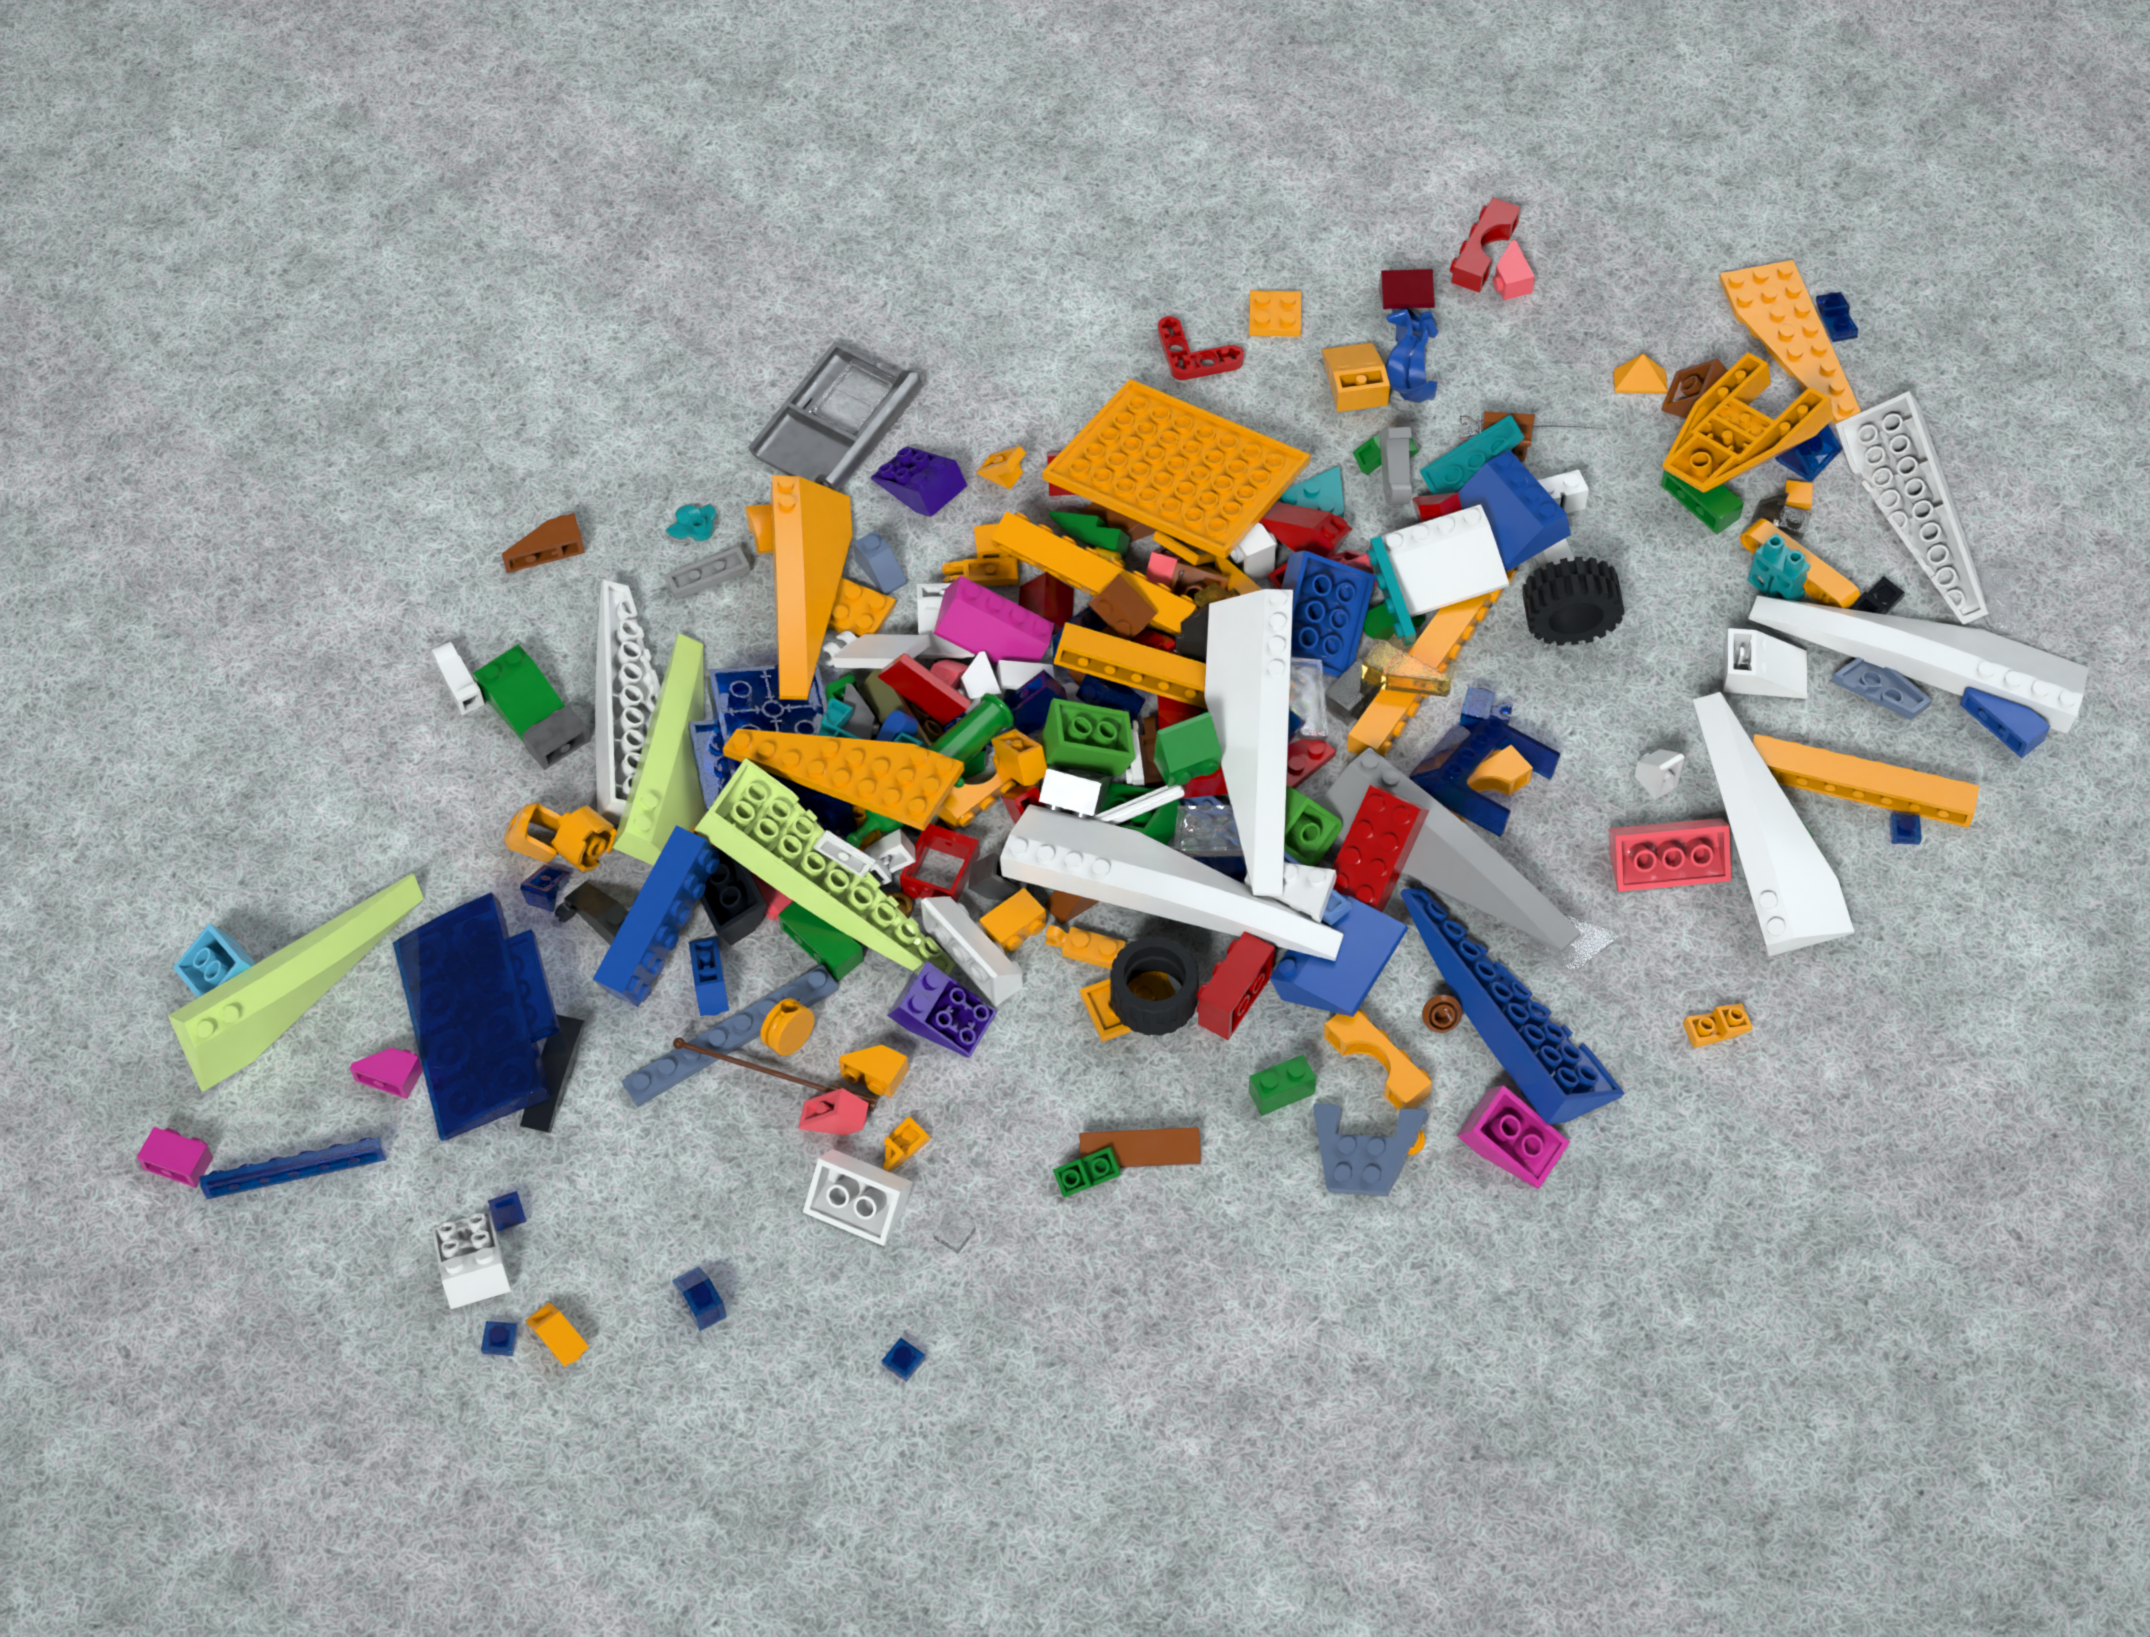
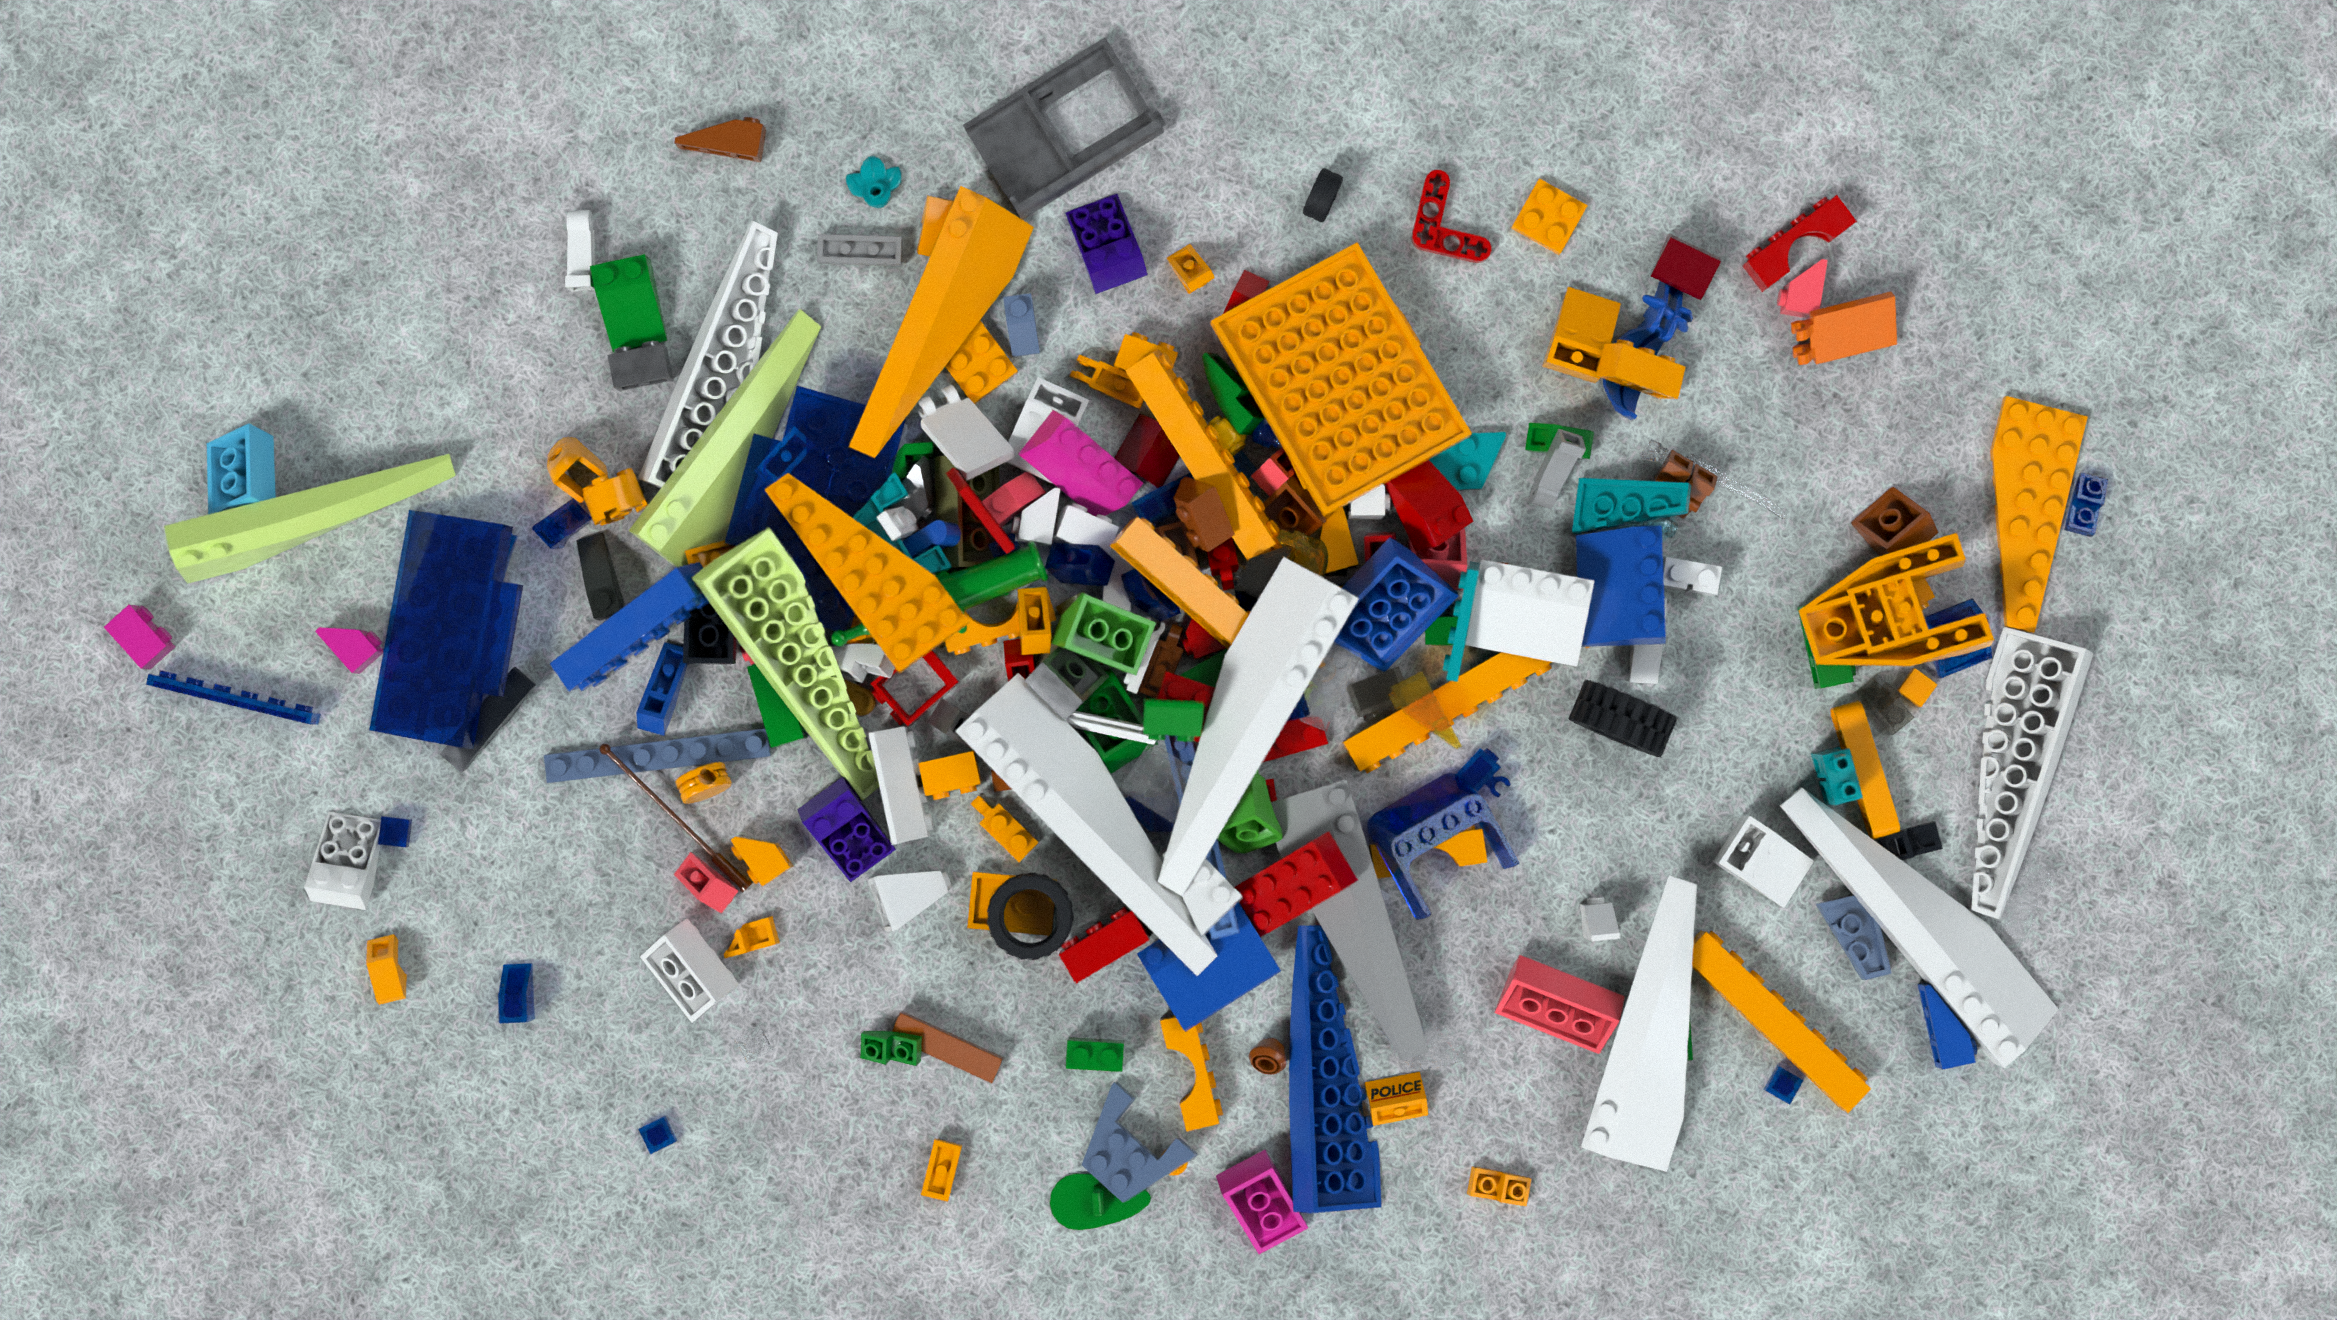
camera: 25 degrees right, 30 degrees up
(499, 1338) = (340, 945): clear blue plate -> none
(565, 911) = (569, 557): black piece -> none
(844, 853) = (822, 653): white slope -> none
(855, 725) = (898, 522): none -> white plate
(1024, 1035) = (906, 895): none -> white slope
(1081, 367) = (1322, 195): none -> black tyre
(1139, 547) = (1264, 435): none -> clear blue cone
(1197, 1255) = (941, 1170): none -> light orange plate
(1357, 1220) = (1085, 1203): none -> green shield
(1416, 366) = (1641, 370): none -> light orange brick
(1435, 506) = (1561, 546): red slope -> none
(1564, 278) = (1846, 329): none -> orange tile
(1580, 997) = (1396, 1098): none -> light orange panel
(1640, 376) = (1852, 478): light orange slope -> none

